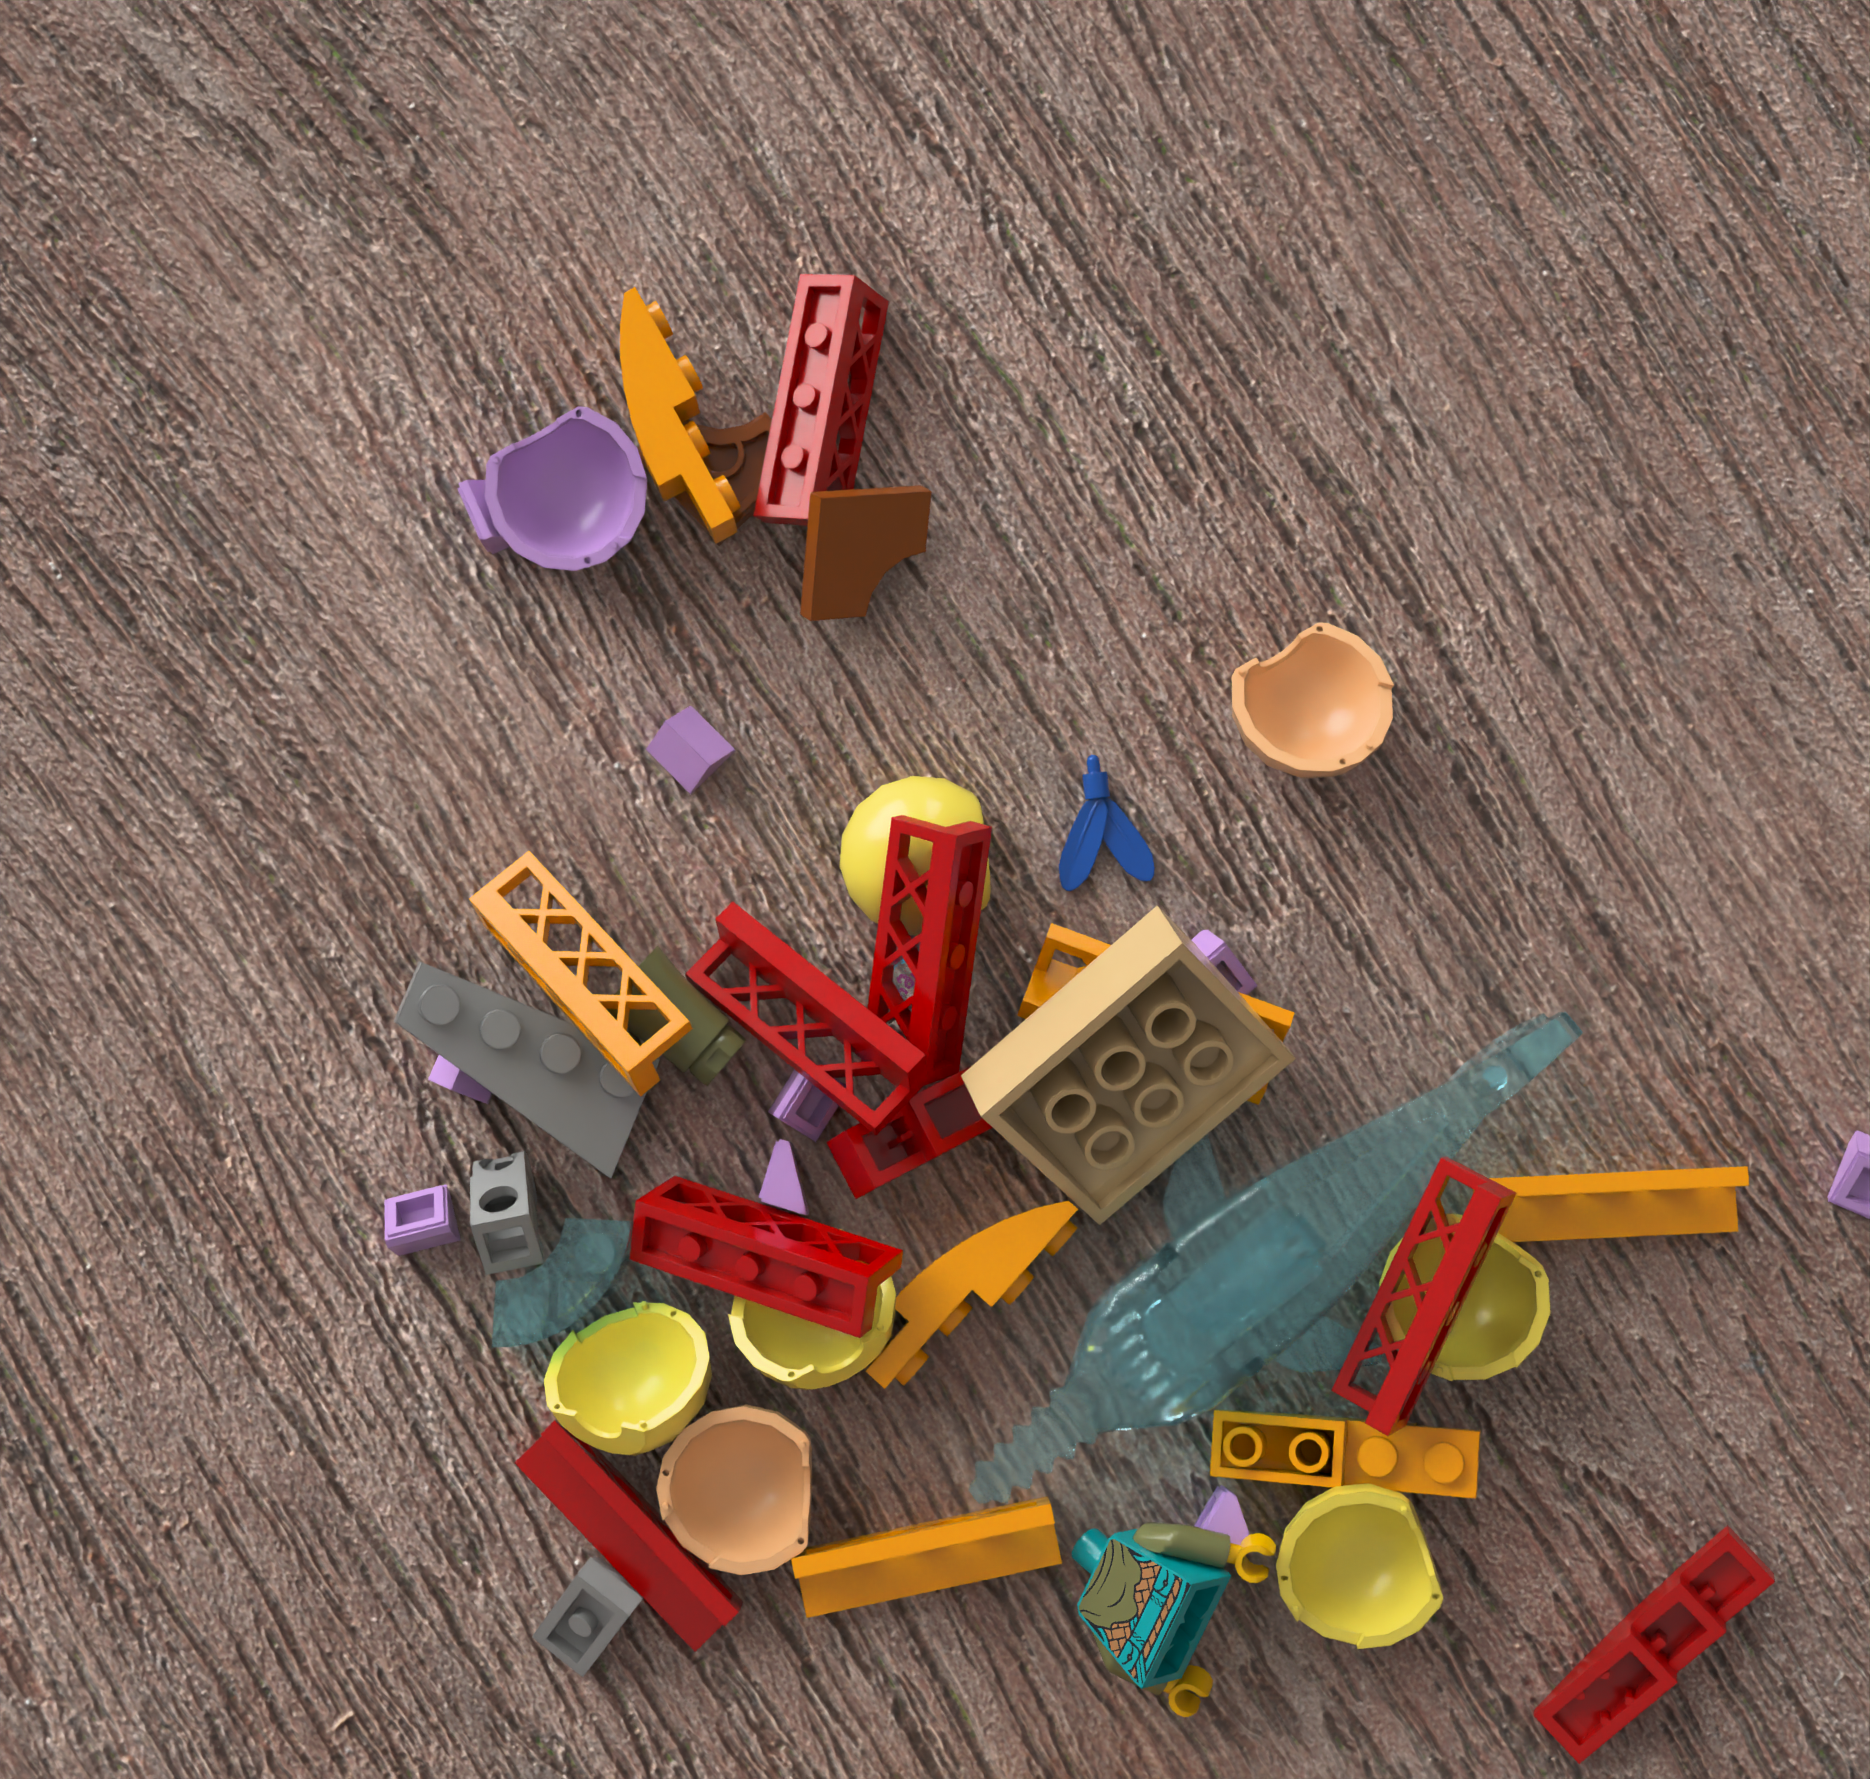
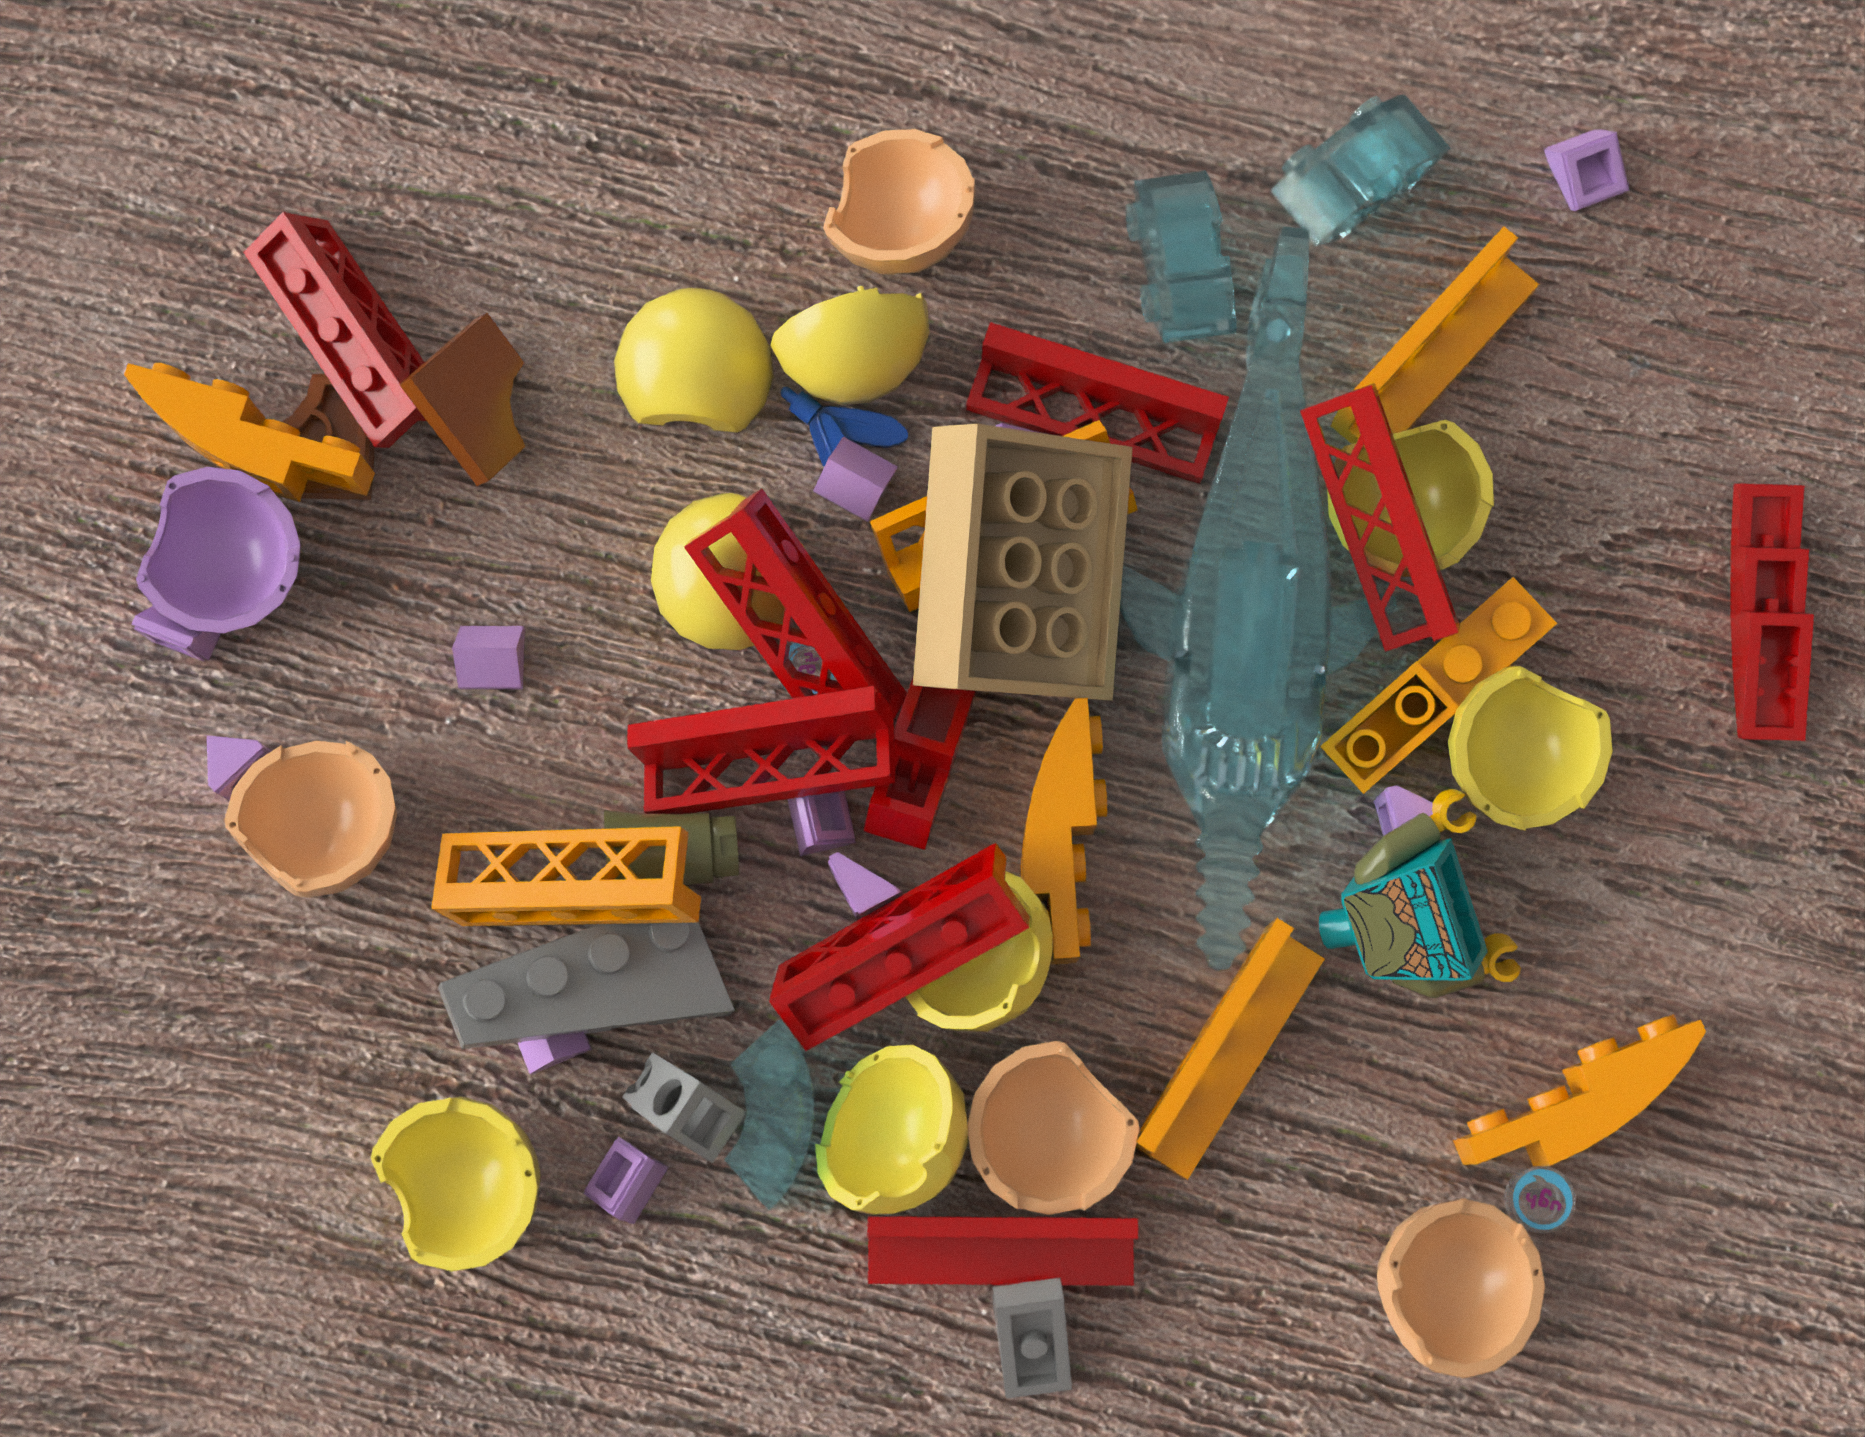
camera: 45 degrees left, 5 degrees down
(306, 1112) = (461, 1181): none -> light yellow cylinder
(435, 656) = (229, 761): none -> lavender slope
(453, 750) = (314, 816): none -> light nougat cylinder
(1048, 672) = (694, 361): none -> light yellow cylinder
(1078, 876) = (854, 479): none -> lavender slope
(1168, 784) = (854, 345): none -> light yellow cylinder
(1332, 984) = (1100, 381): none -> red fence
(1486, 949) = (1181, 249): none -> clear light blue brick
(1689, 1010) = (1359, 168): none -> clear light blue brick

